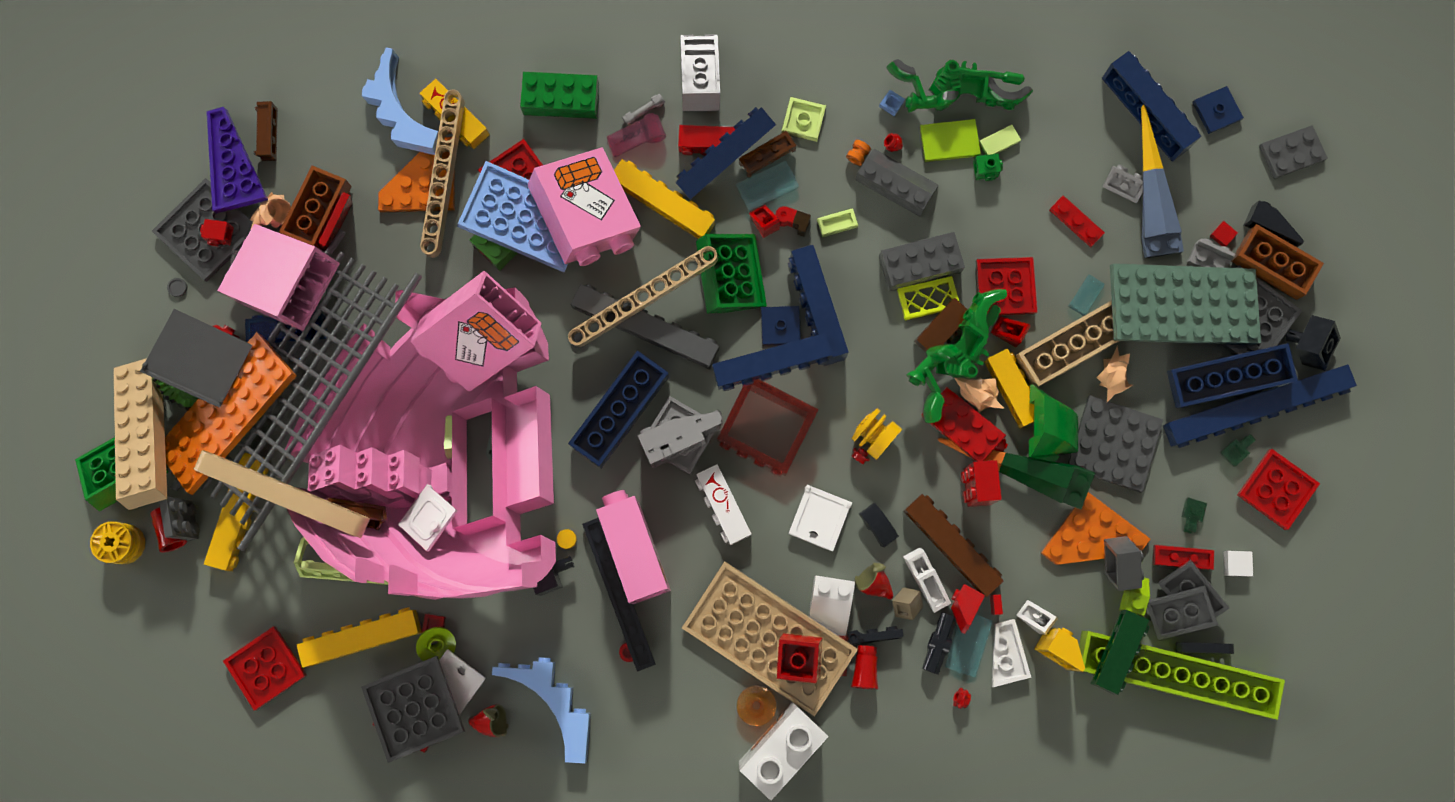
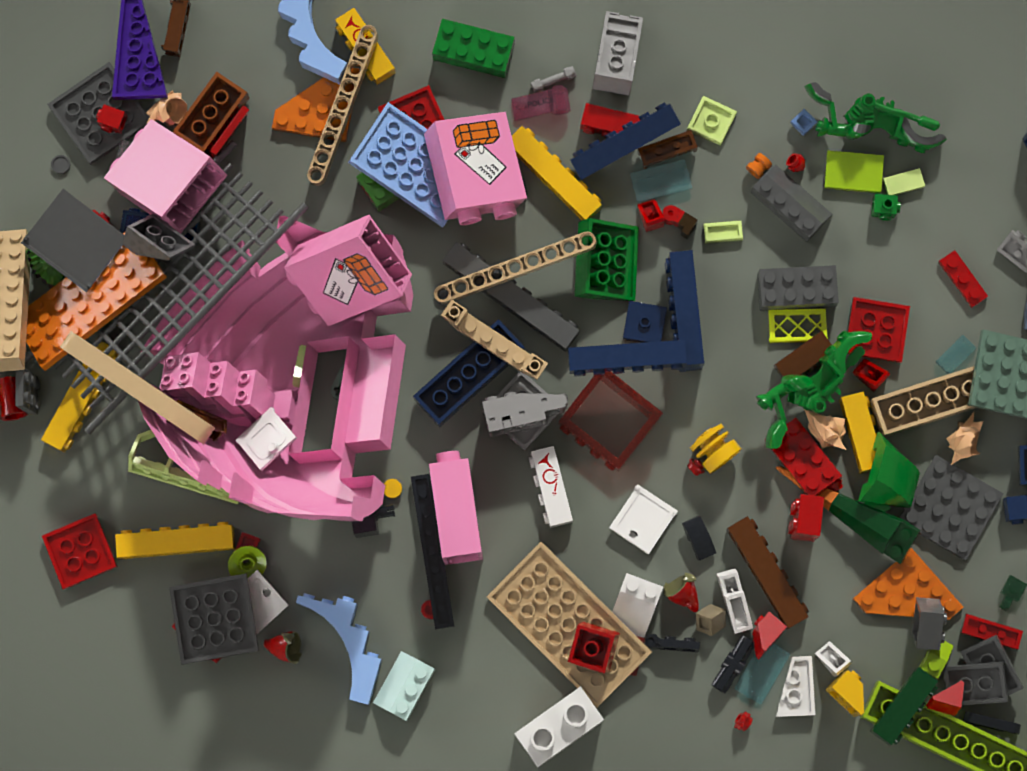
camera: 15 degrees right, 0 degrees up
(276, 340) = (155, 239): none -> flat silver slope
(617, 736) = (404, 686): none -> light aqua slope
(636, 373) = (493, 341): none -> tan slope
(758, 716) = (535, 678): clear orange dish -> none
(865, 668) = (656, 673): red plant -> none
(996, 604) = (796, 638): red tile -> none
(1163, 636) = (949, 700): none -> red slope

